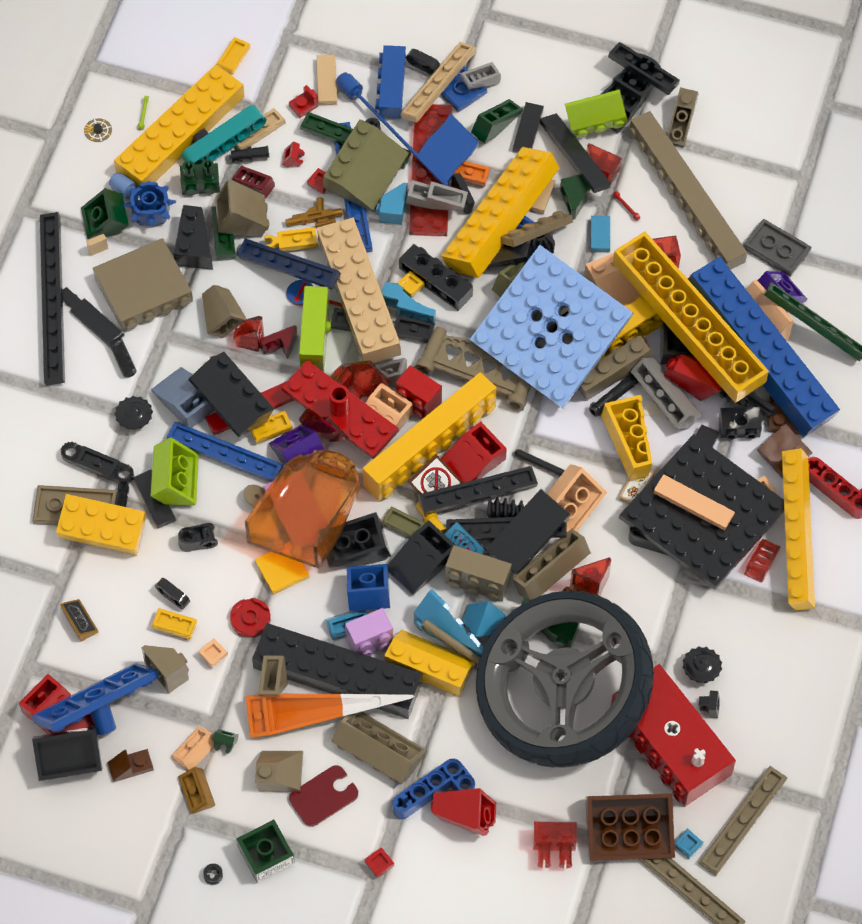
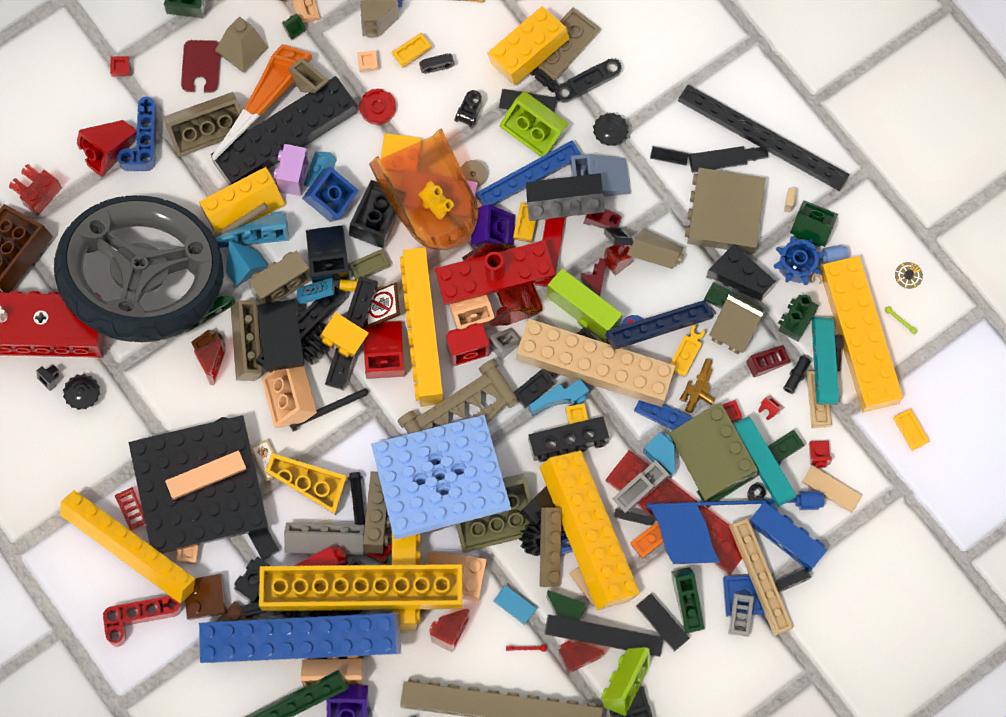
camera: 125 degrees right, 10 degrees up
(234, 337) = (618, 236): none -> black plate
(312, 491) = (435, 200): none -> yellow hips
(353, 111) = (765, 462): none -> teal beam
(490, 480) = (343, 335): none -> yellow slope

